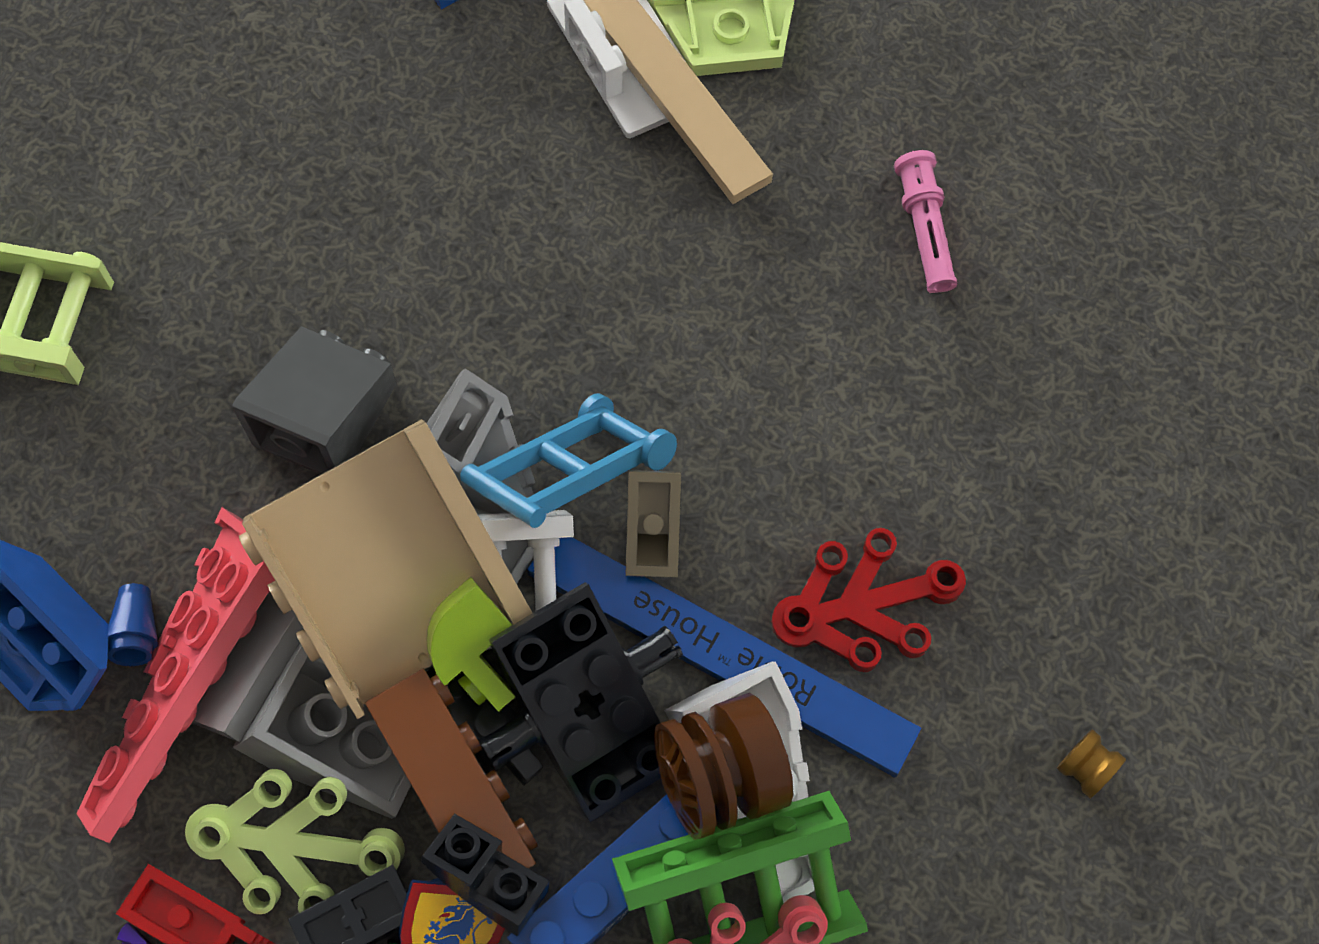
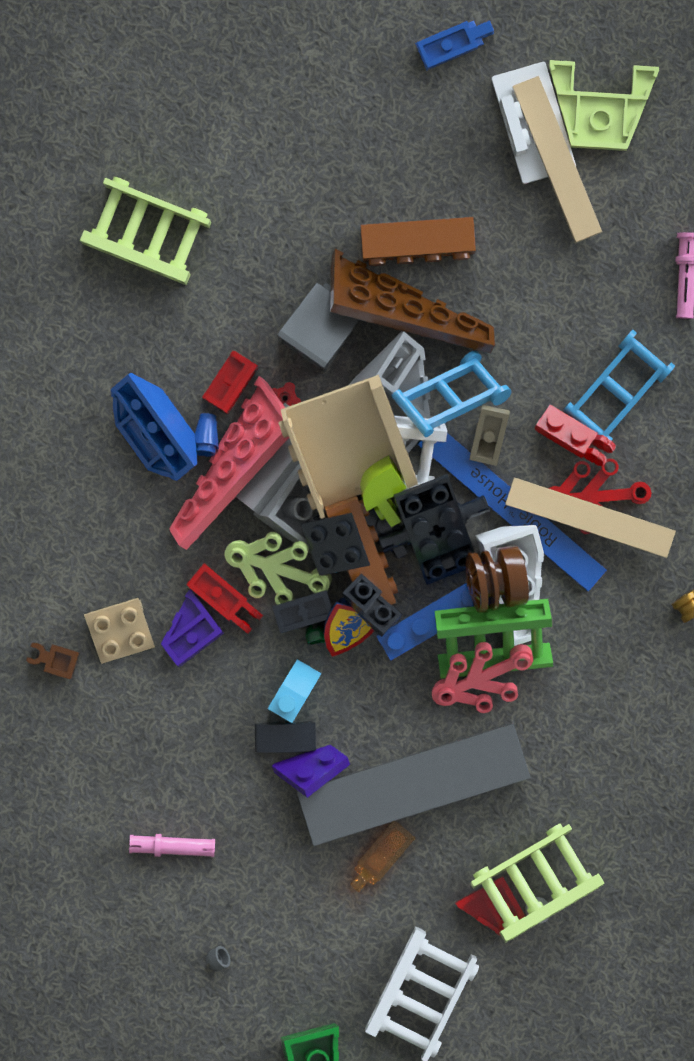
camera: 15 degrees right, 20 degrees up
(172, 526) = (230, 382): none -> red hinge
(395, 766) = (335, 544): none -> black hinge
(457, 342) = (397, 305): none -> reddish brown wing
(468, 241) = (418, 240): none -> dark orange brick
(806, 503) = (574, 436): none -> hinge
(857, 342) = (627, 344): none -> dark azure piece
(870, 634) = (590, 517): none -> tan tile

